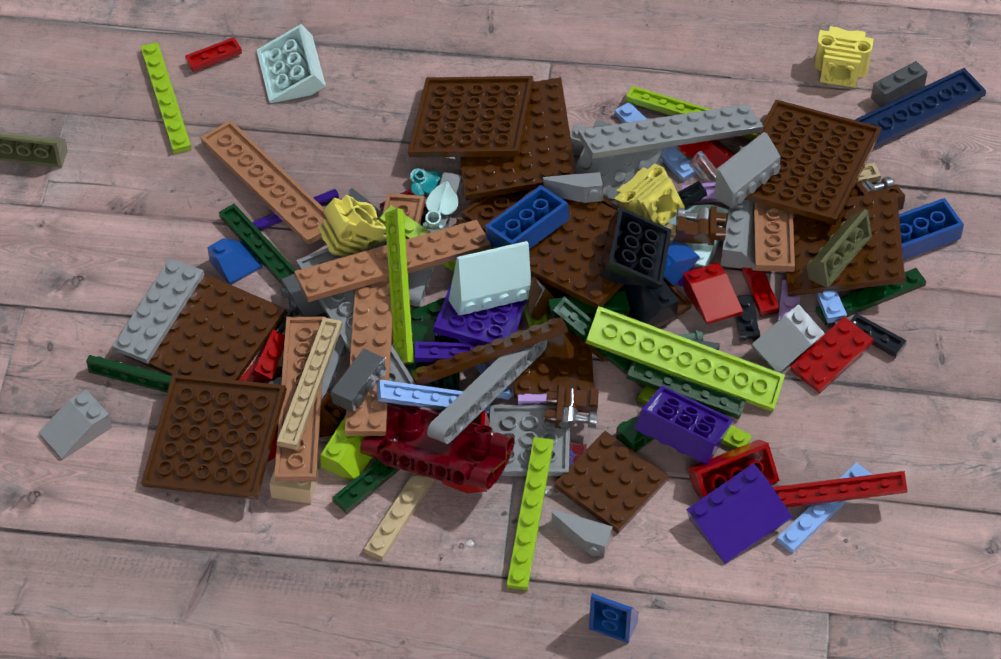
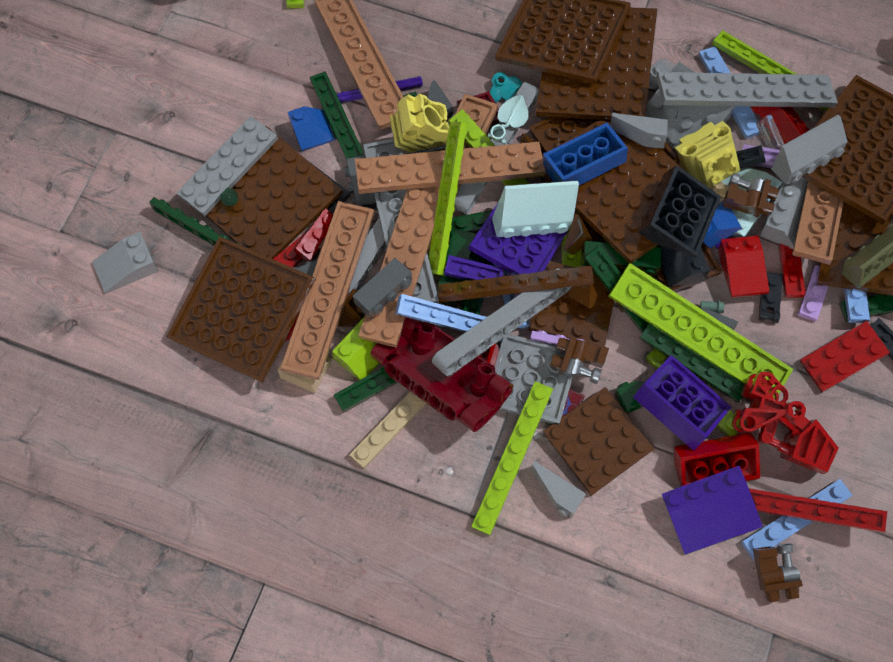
camera: 15 degrees right, 15 degrees up
(170, 338) = (229, 197): none -> clear green plate
(309, 384) = (338, 279): tan plate -> none
(612, 618) = (562, 591): blue slope -> none
(787, 339) = (805, 331): light grey slope -> none
(814, 559) = (775, 577): none -> reddish brown hips
(817, 434) = (805, 442): none -> red piece

